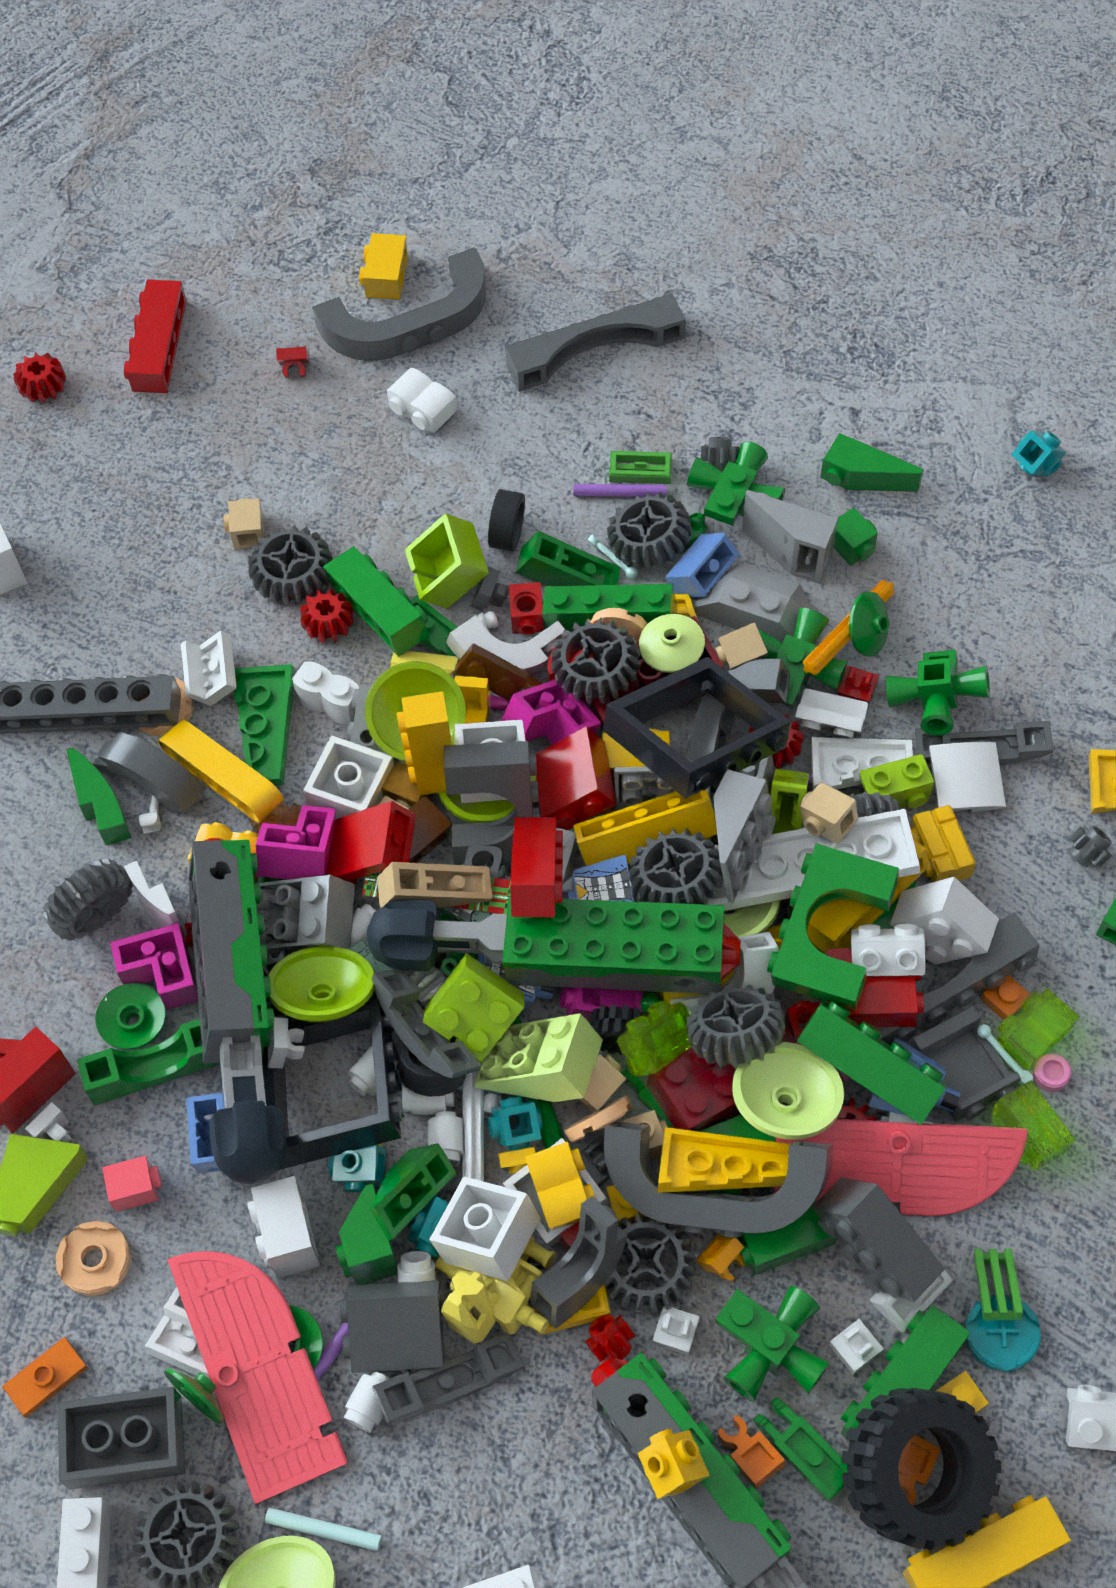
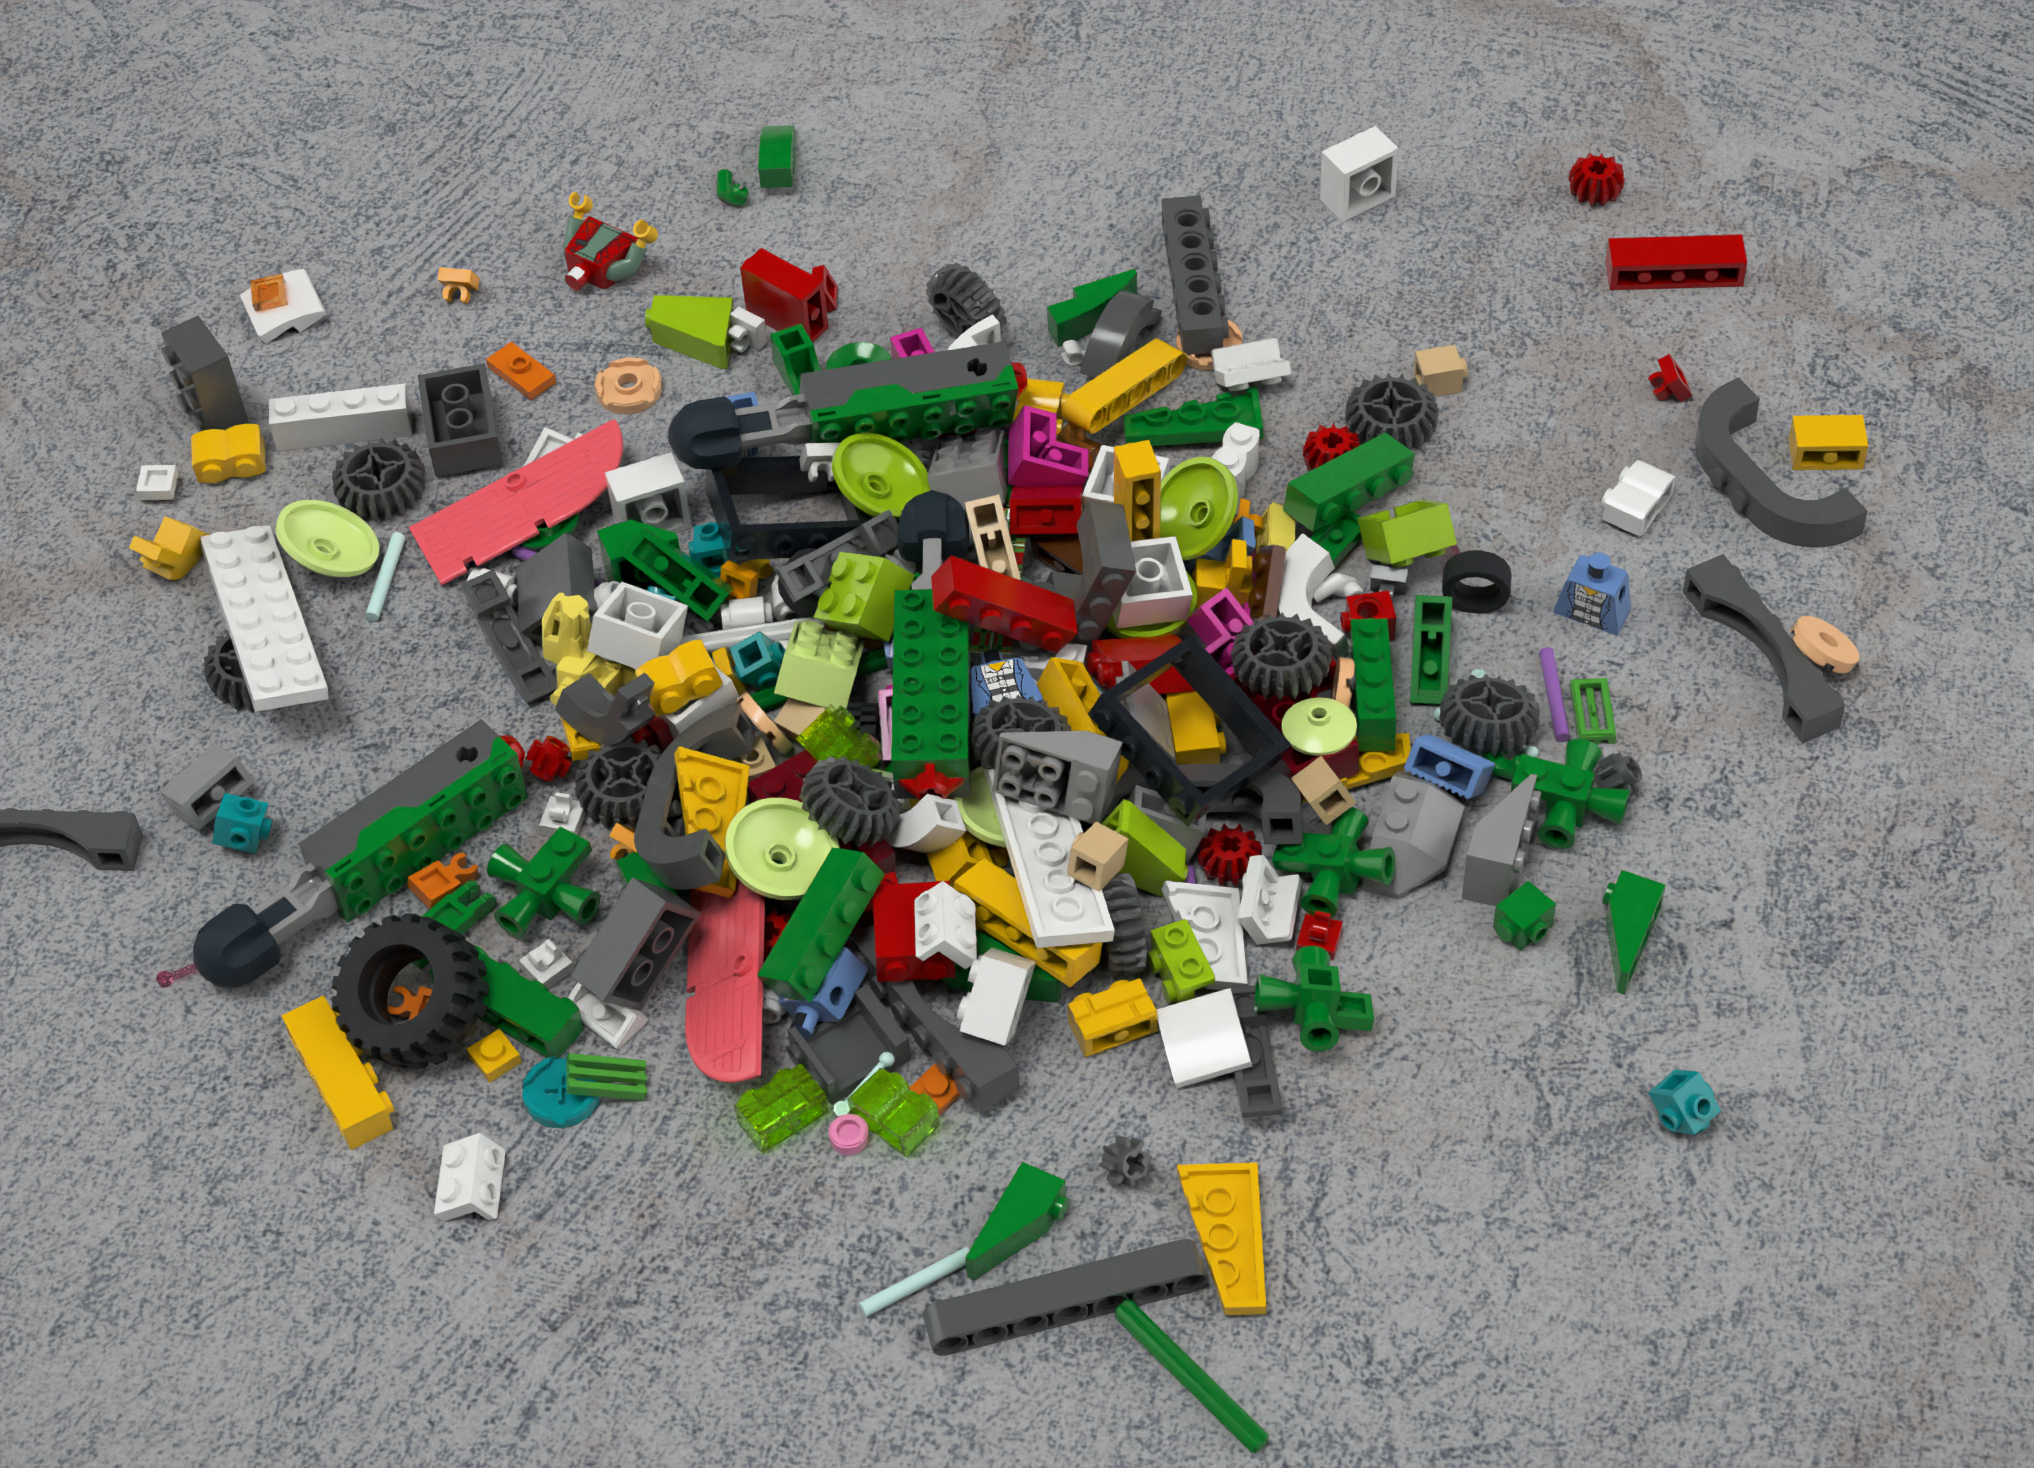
camera: 85 degrees right, 10 degrees down
(132, 1183) = (689, 384): coral brick -> none
(197, 1391) = (494, 457): green dish -> none
(409, 1140) = (742, 578): none -> light orange tile
(528, 442) = (1596, 594): none -> medium blue torso
(602, 298) = (1824, 644): none -> light nougat tile
(673, 1463) = (390, 768): yellow brick -> none
(827, 878) = (922, 839): green arch -> none
(839, 636) = (1384, 907): light orange axle -> none
(868, 624) = (1401, 915): green dish -> none

